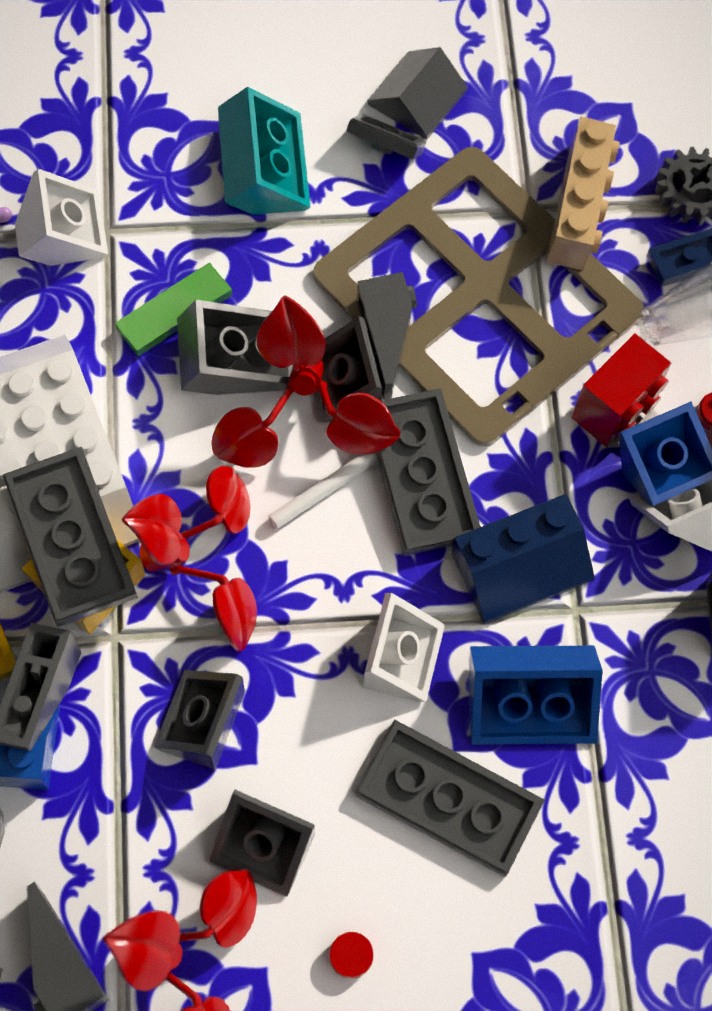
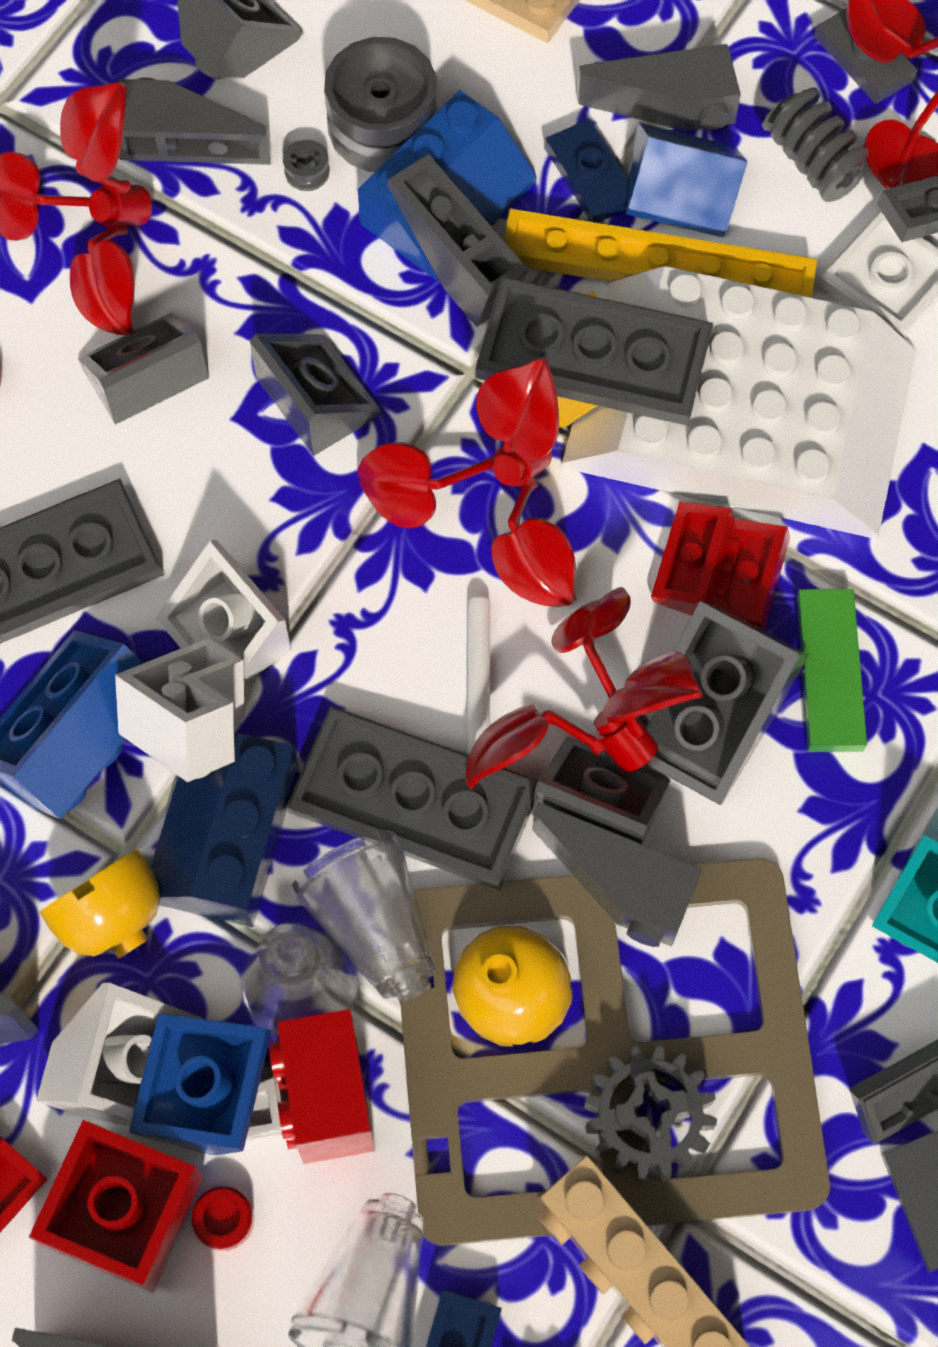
camera: 130 degrees right, 0 degrees up
(18, 866) = (307, 177): none -> dark grey bush
(149, 403) = (721, 563): none -> red slope
(487, 348) = (512, 985): none -> yellow cylinder
(488, 616) = (184, 707): none -> white brick
(500, 250) = (676, 1108): none -> dark grey gear
(511, 435) = (371, 913): none -> clear cone
(573, 455) = (296, 975): none -> clear cone
(621, 582) = (107, 909): none -> yellow cylinder

